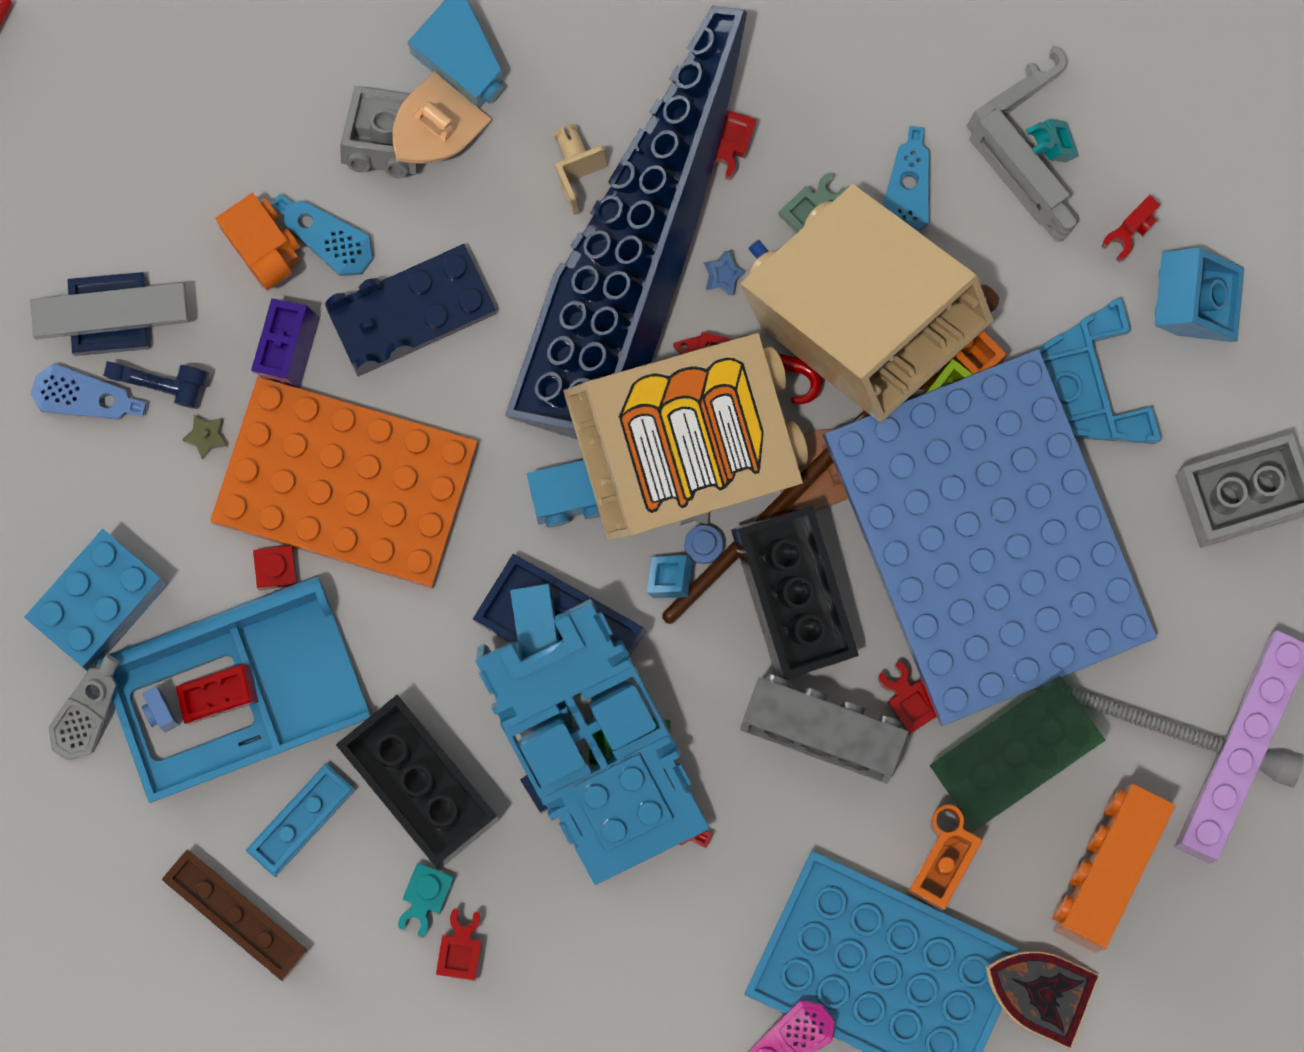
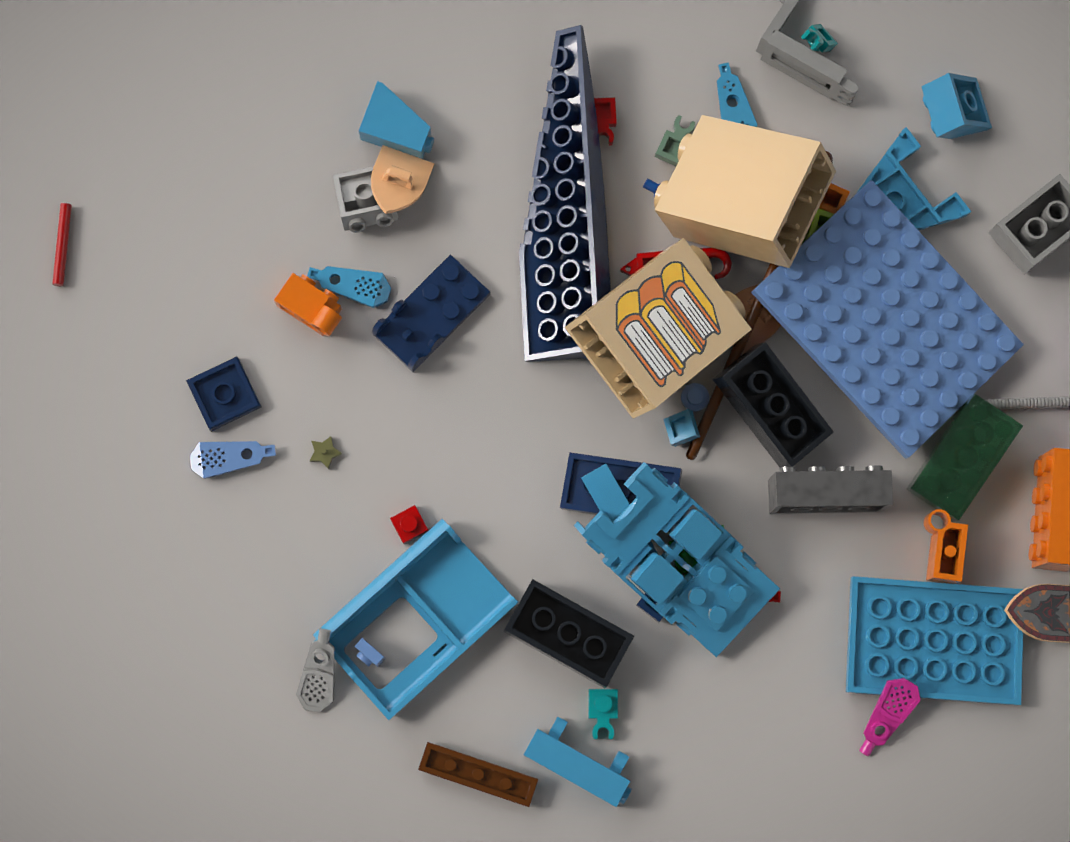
camera: 25 degrees left, 0 degrees up
(96, 600) = (295, 594): dark azure brick -> none
(109, 311) = (224, 391): light grey tile -> none
(185, 387) = (298, 424): dark blue brick -> none
(216, 694) = (404, 626): red plate -> none
(285, 342) = (355, 367): dark purple hinge -> none
(300, 820) = (496, 691): dark azure tile -> none
(344, 482) = (433, 447): orange plate -> none
(362, 955) = (579, 768): none -> dark azure brick
(460, 954) = (643, 740): red plate -> none
(562, 494) = (587, 398): dark azure brick -> none
(577, 162) = (505, 171): tan bracket -> none
(723, 273) = (634, 209): medium blue piece -> none
(910, 702) = (877, 450): red plate -> none
(1139, 221) = (897, 72): red plate -> none

